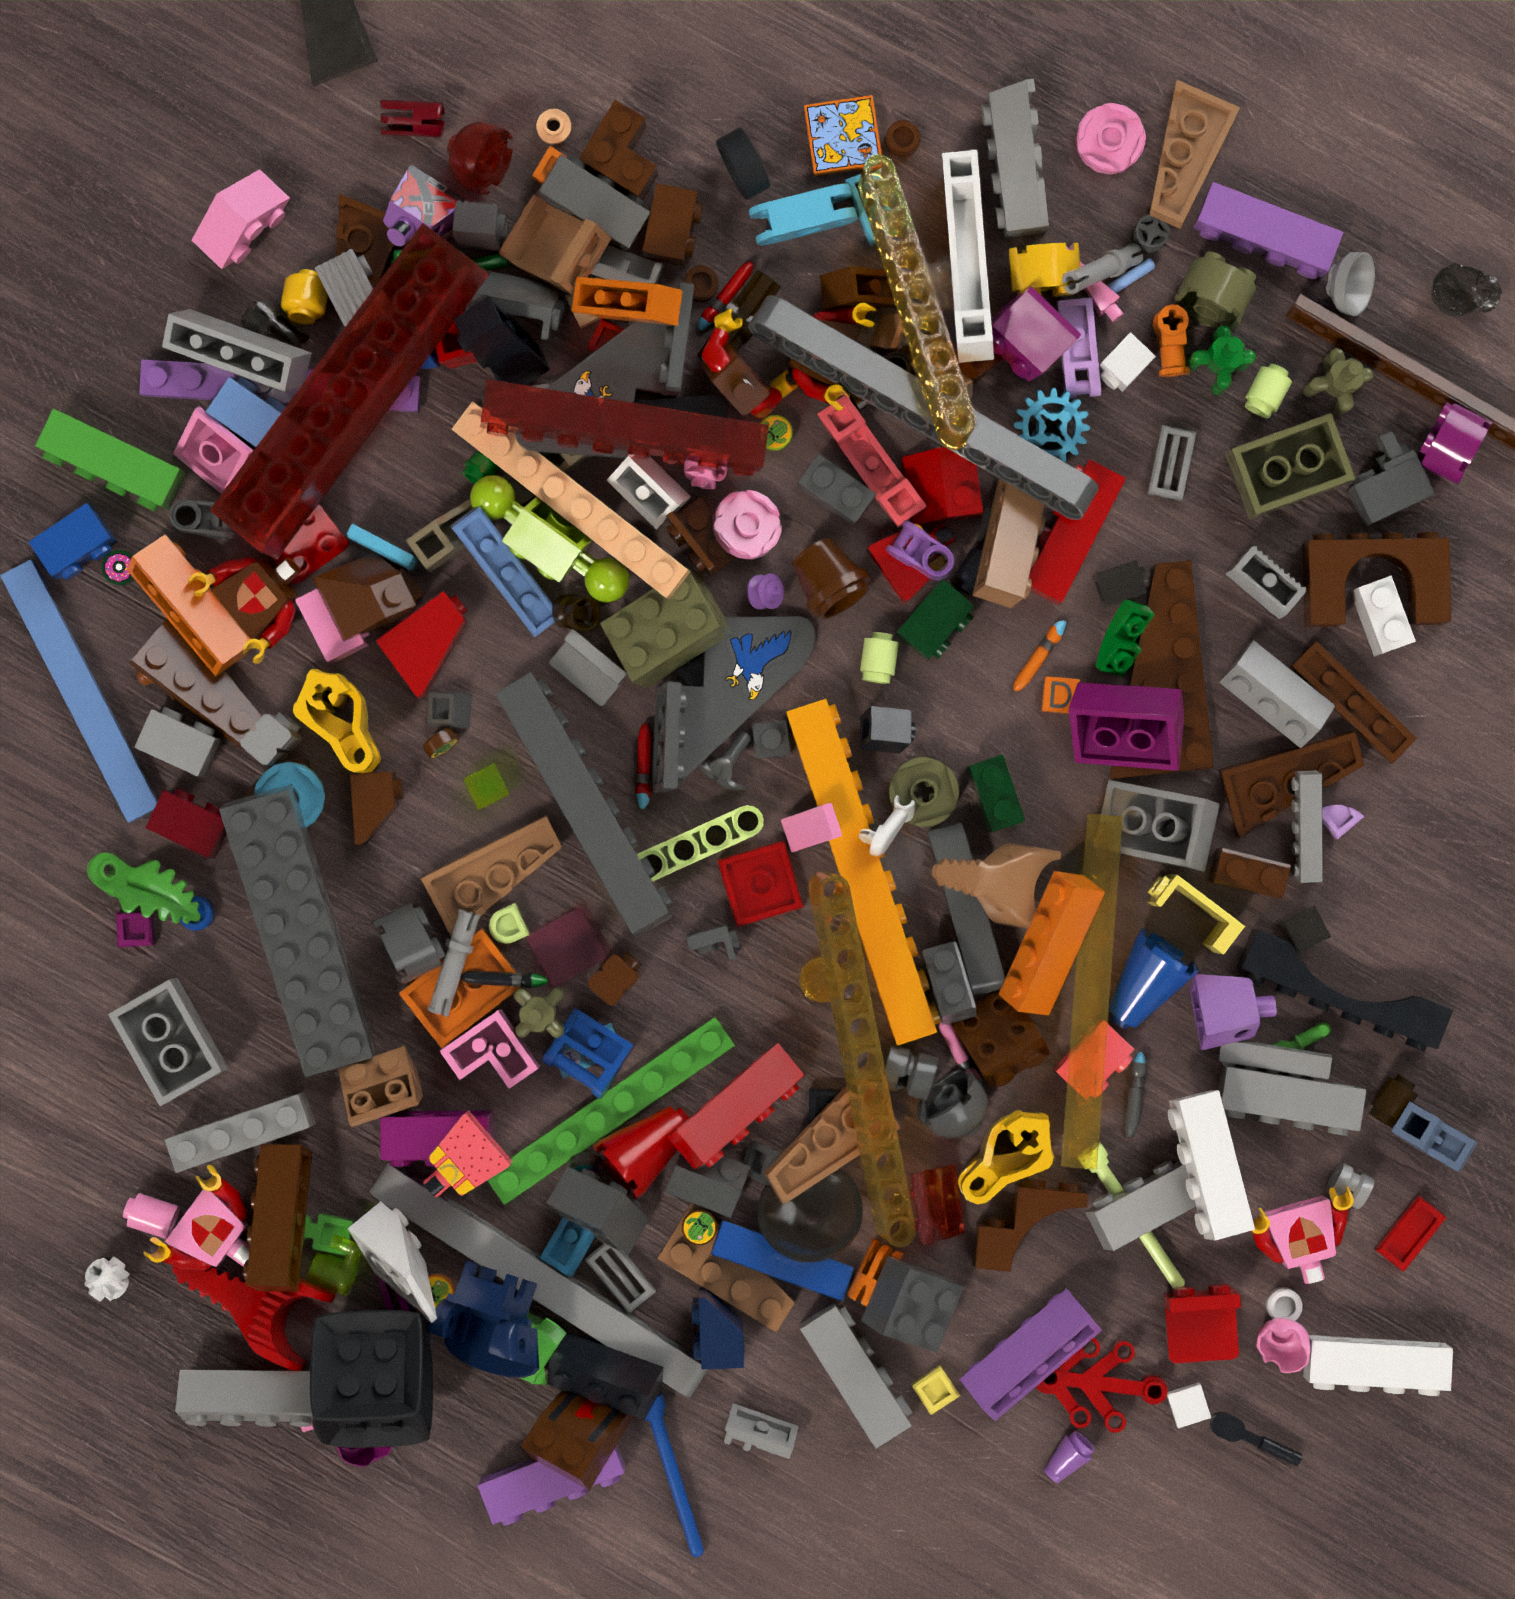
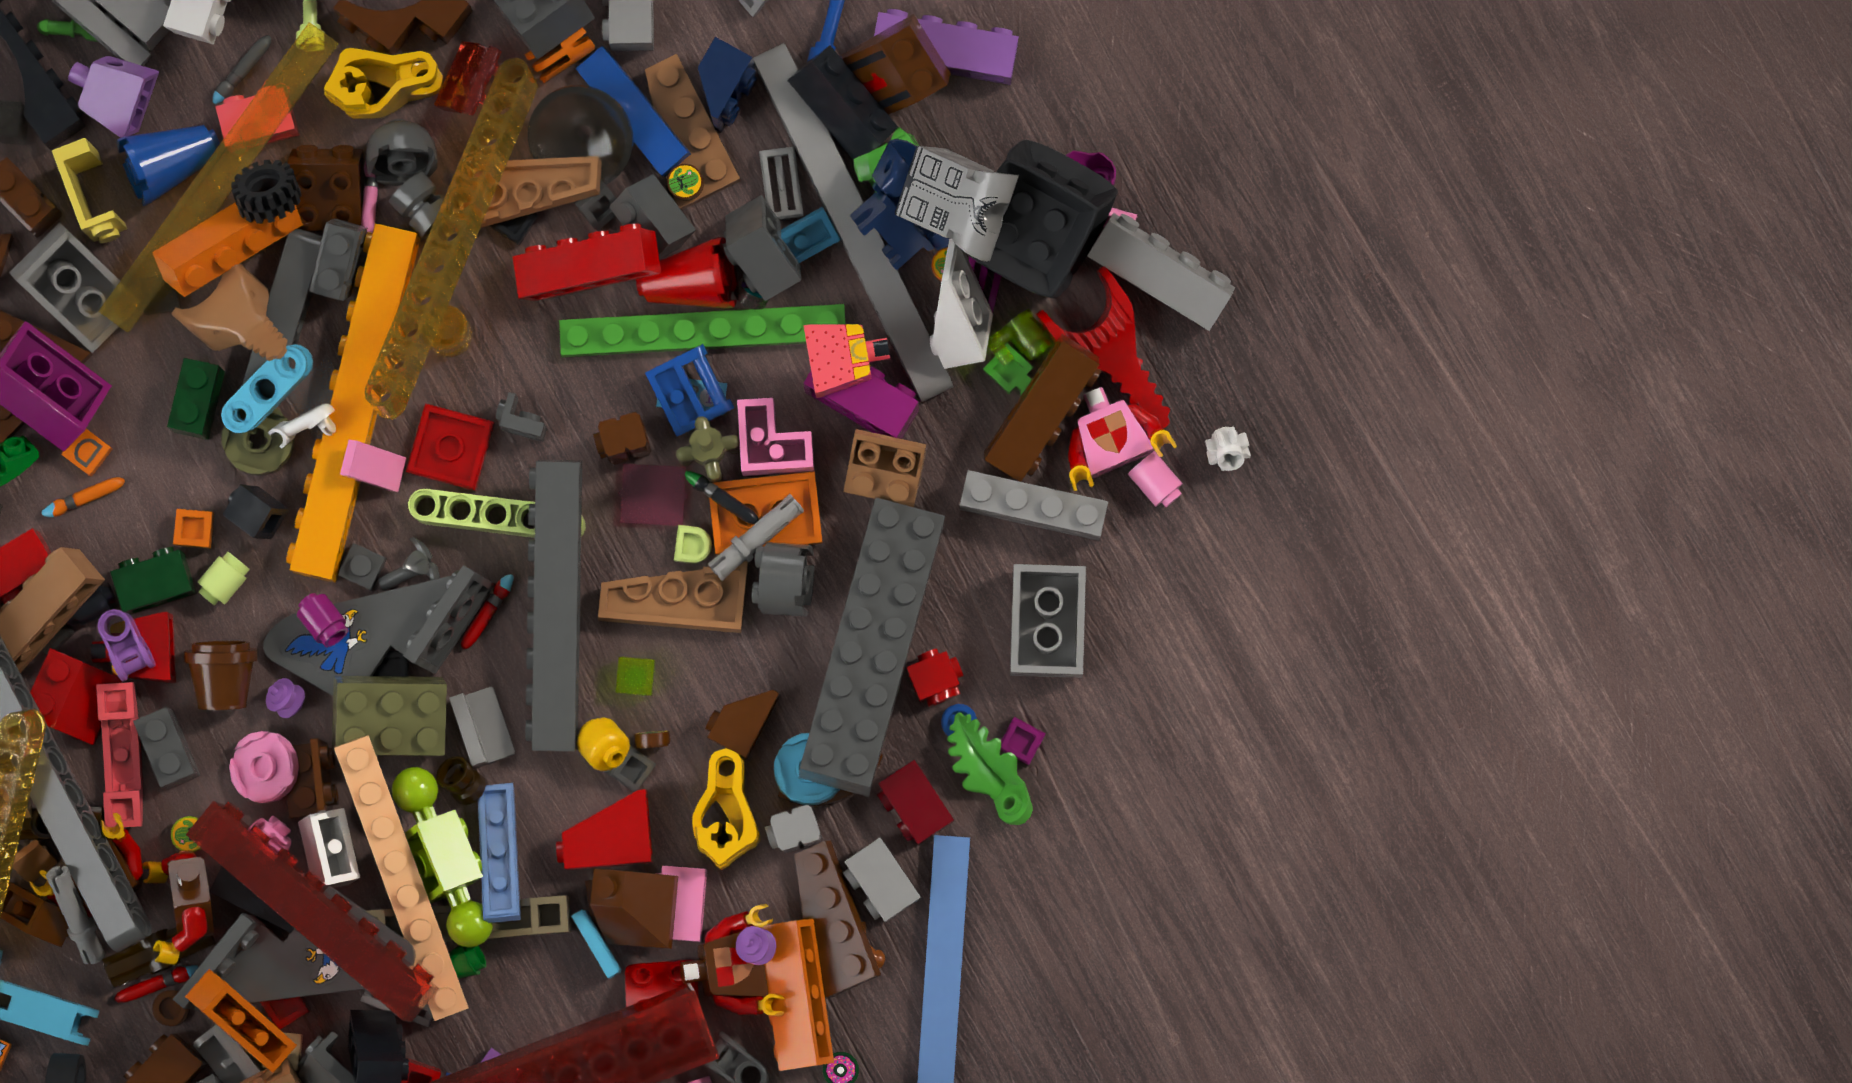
camera: 145 degrees left, 5 degrees down
(235, 938) = (935, 677): none -> red brick
(242, 623) = (756, 945): none -> medium lavender wheel
(439, 1353) = (956, 199): none -> light grey piece
(477, 713) = (602, 744): none -> yellow head
(772, 673) = (322, 619): none -> magenta brick
(813, 301) = (81, 927): none -> light grey pin
(930, 685) = (193, 528): none -> orange plate
(937, 818) = (251, 399): none -> medium azure piece
(1030, 995) = (266, 191): none -> black tyre

